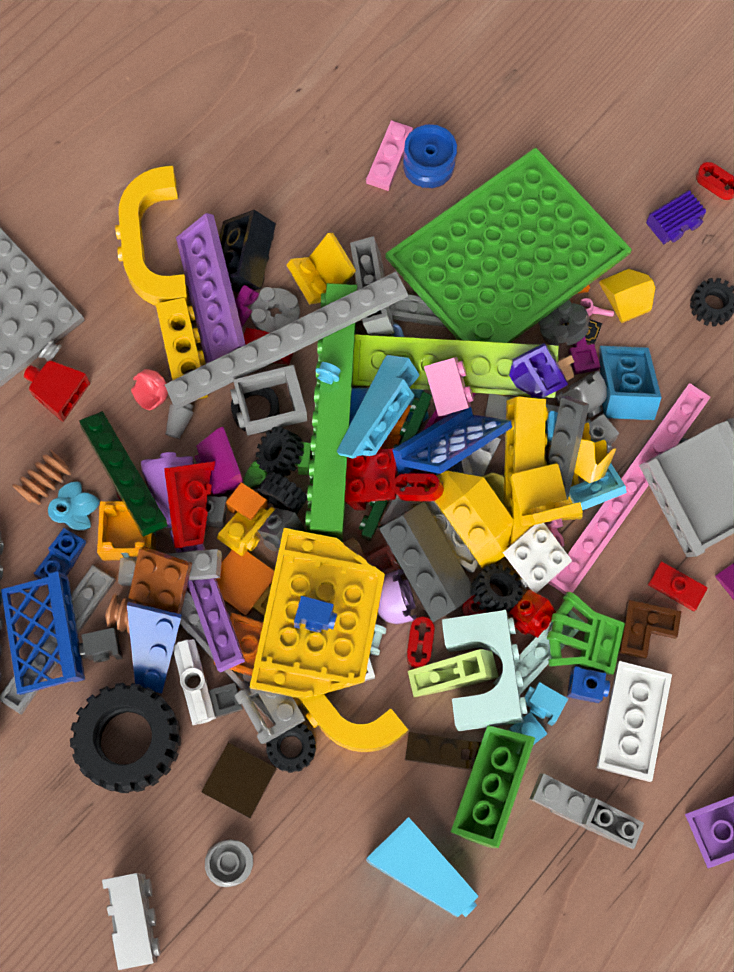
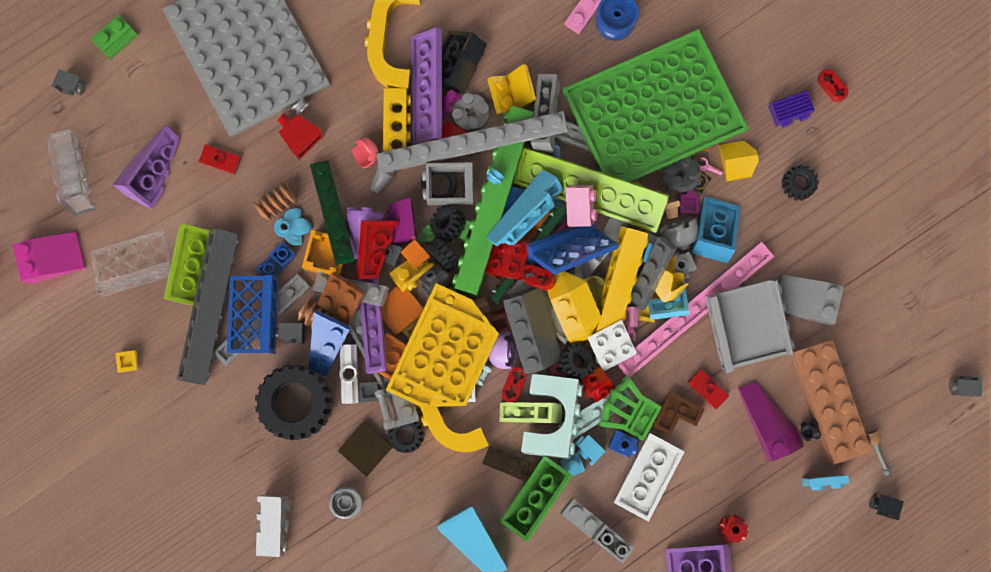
camera: 15 degrees right, 10 degrees up
(315, 615) = (442, 352): blue brick -> none
(537, 372) = (648, 213): dark purple slope -> none
(541, 495) = (626, 304): yellow bracket -> none

